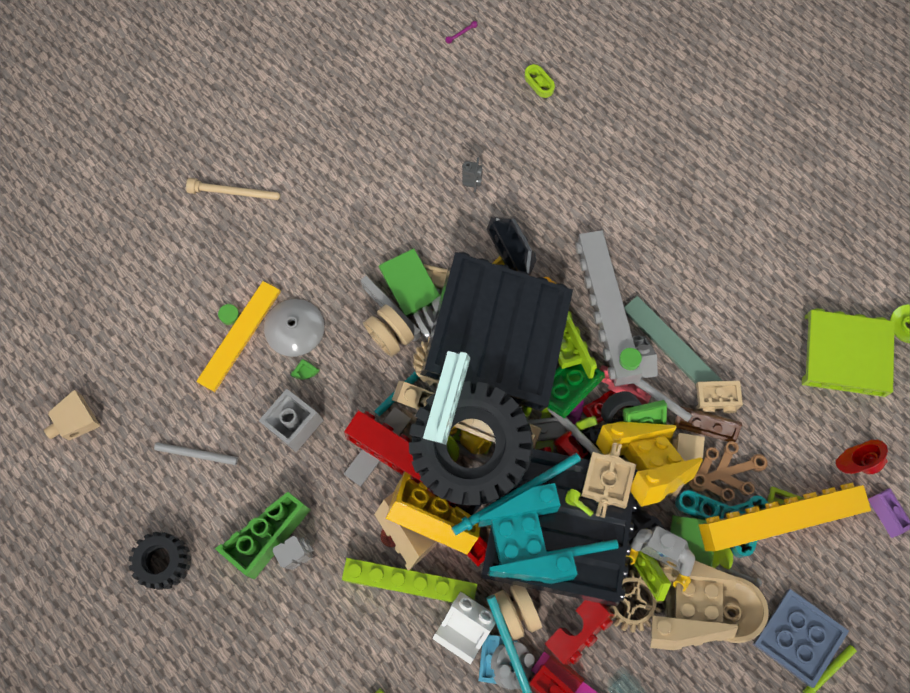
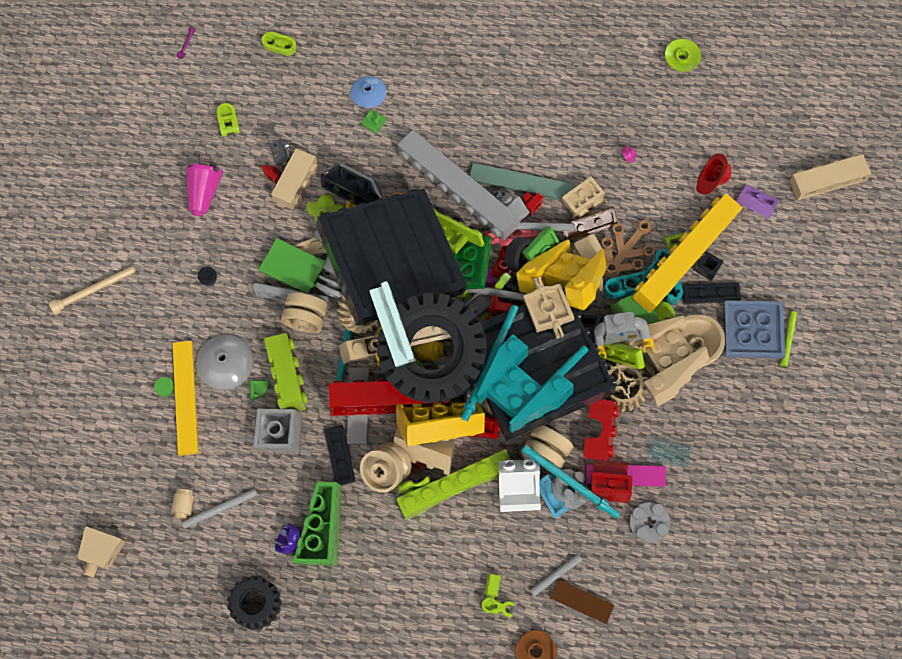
camera: 35 degrees left, 0 degrees up
(167, 427) = (182, 503): none -> tan brick
(229, 524) = (293, 534): none -> dark purple hair
(293, 552) = (354, 522): light grey brick -> none
(329, 480) = (340, 455): none -> black tile
(333, 243) = (207, 276): none -> black tile
(335, 373) = (285, 373): none -> lime wedge
(357, 521) = (385, 467): none -> tan wheel
(367, 554) = (410, 486): none -> lime plate
(382, 162) = (201, 187): none -> dark pink cone
(451, 113) = (225, 114): none -> lime plate
(453, 190) = (272, 173): none -> red slope
(467, 207) = (295, 179): none -> tan brick
(476, 248) = (324, 204): none -> lime plate
(572, 498) = (532, 338): lime hand -> none
(573, 200) = (373, 121): none -> bright green tile
(584, 178) = (370, 98): none -> medium blue dish
(630, 359) = (502, 211): bright green tile -> none
(667, 369) = (532, 203): none -> red tile
(782, 571) = (711, 293): none -> black tile
(792, 383) = (629, 154): none -> dark pink plate
(804, 544) = (711, 261): none -> black plate
(850, 353) = (654, 104): lime panel -> none

